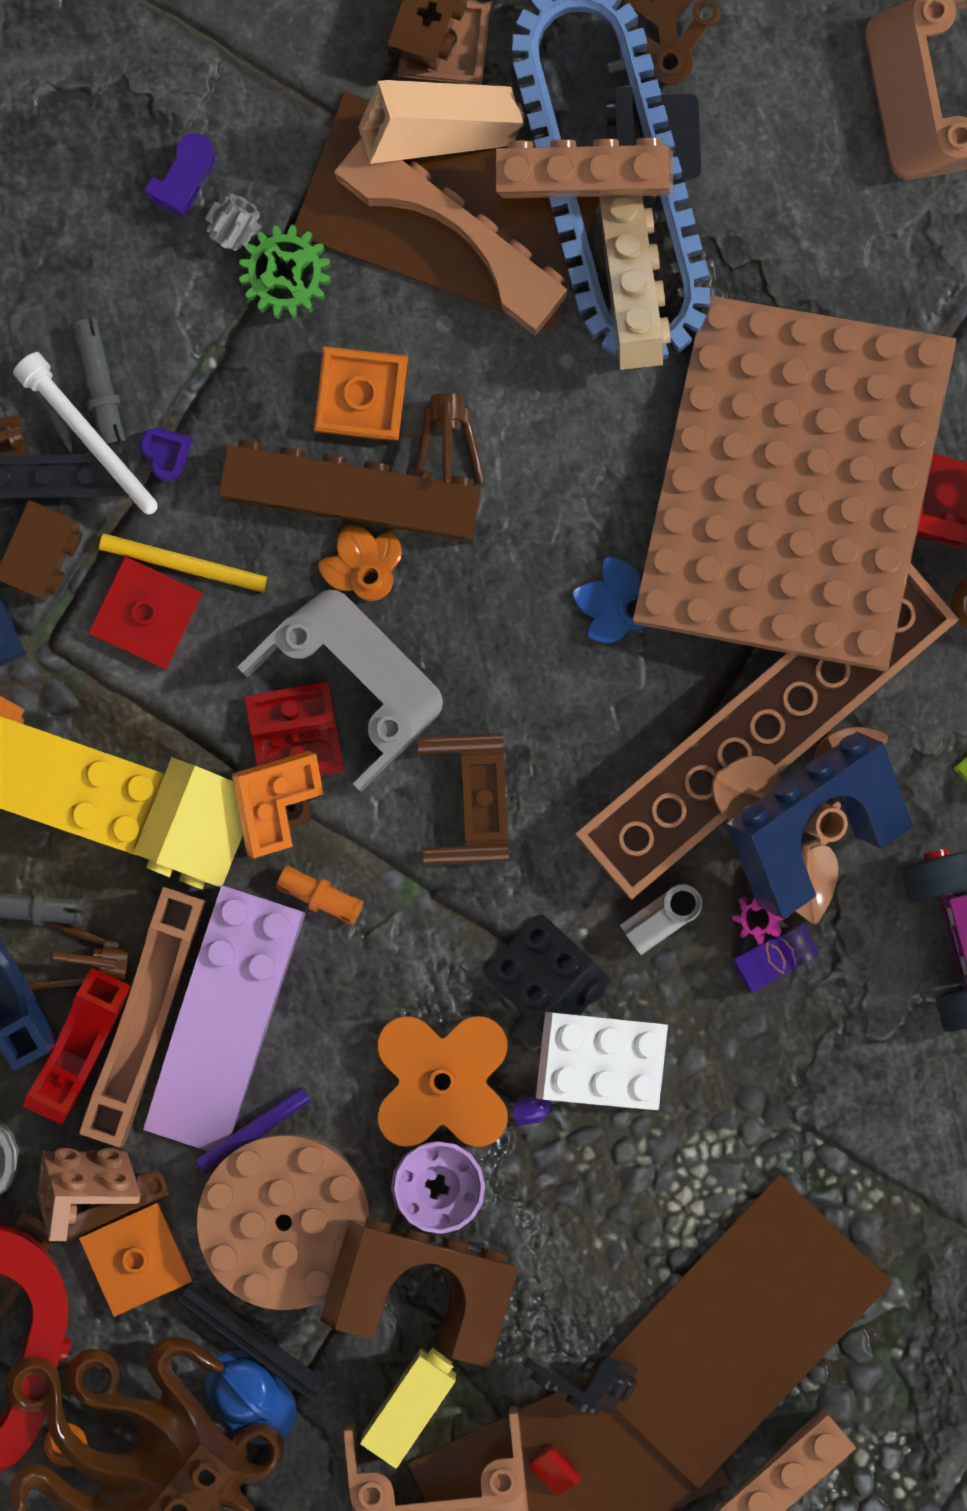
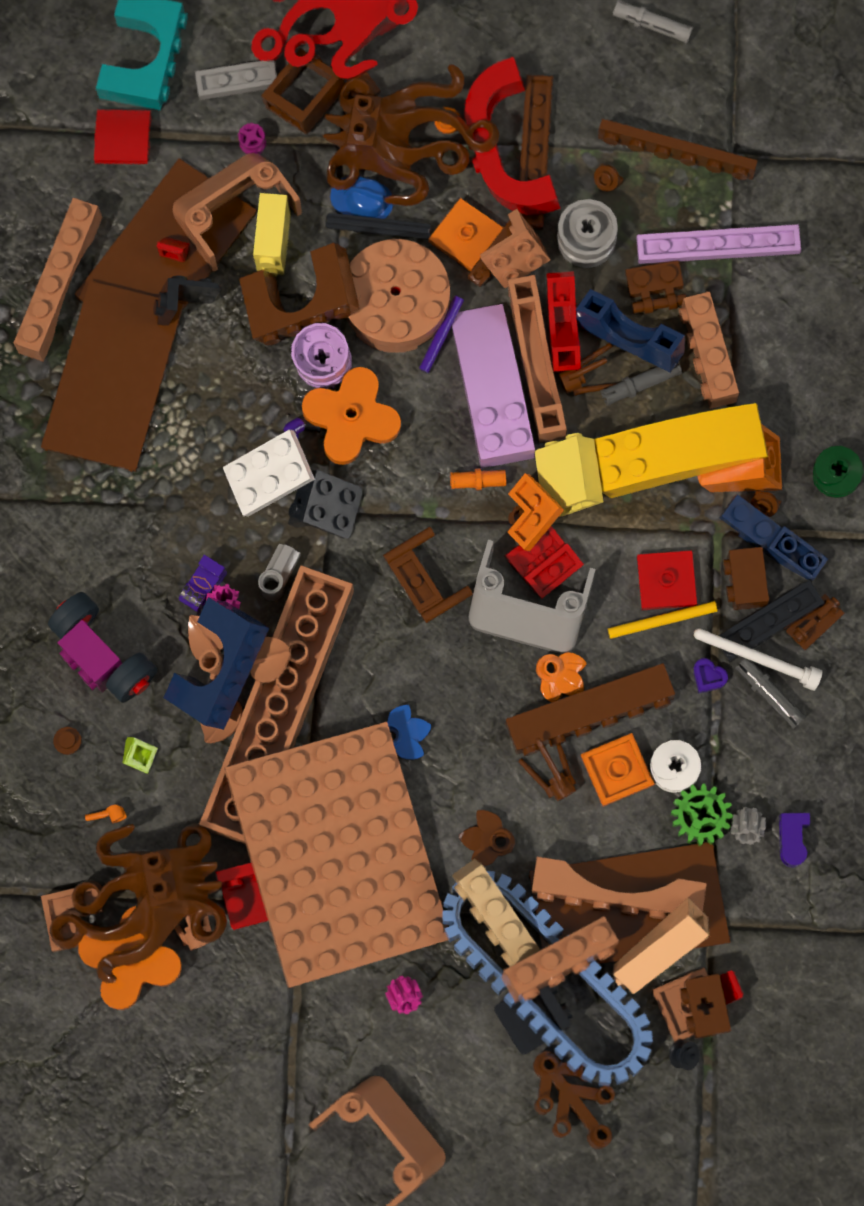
camera: 155 degrees right, 10 degrees down
(267, 339) = (679, 752): none -> white piece
(379, 31) = (730, 987): none -> red slope
(588, 405) = (483, 836): none -> reddish brown plate
(807, 254) = (404, 995): none -> dark pink gear

